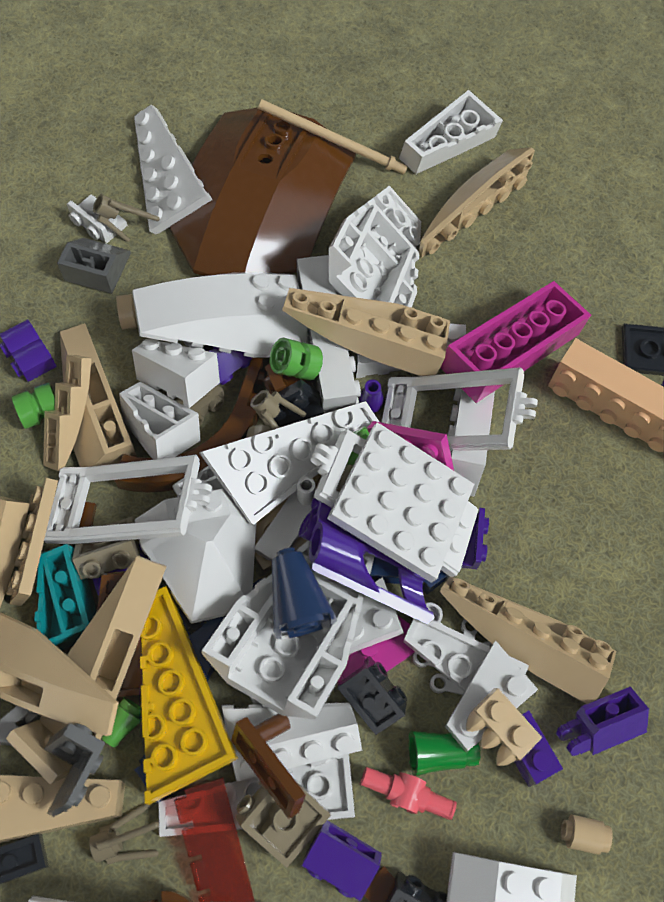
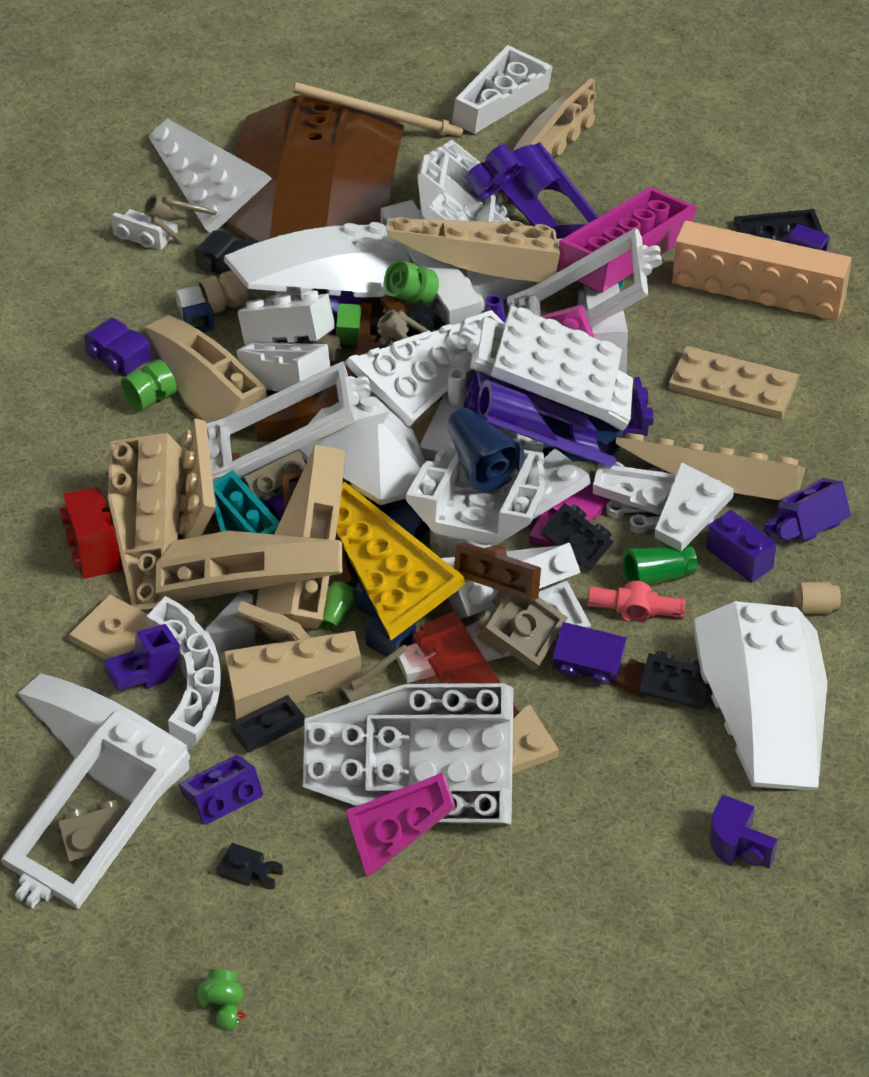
camera: 10 degrees left, 20 degrees down
(64, 422) = (187, 380): tan slope -> none
(82, 751) = (311, 601): dark grey bracket -> none
(93, 264) = (158, 265): dark grey slope -> none
(107, 323) = (193, 305): none -> leg
(155, 264) = (213, 249): none -> black brick
(234, 377) = (348, 323): none -> bright green slope
(440, 246) = (522, 177): none -> dark purple panel
(503, 726) = (708, 515): tan plate -> none
(575, 524) = (733, 382): none -> tan plate

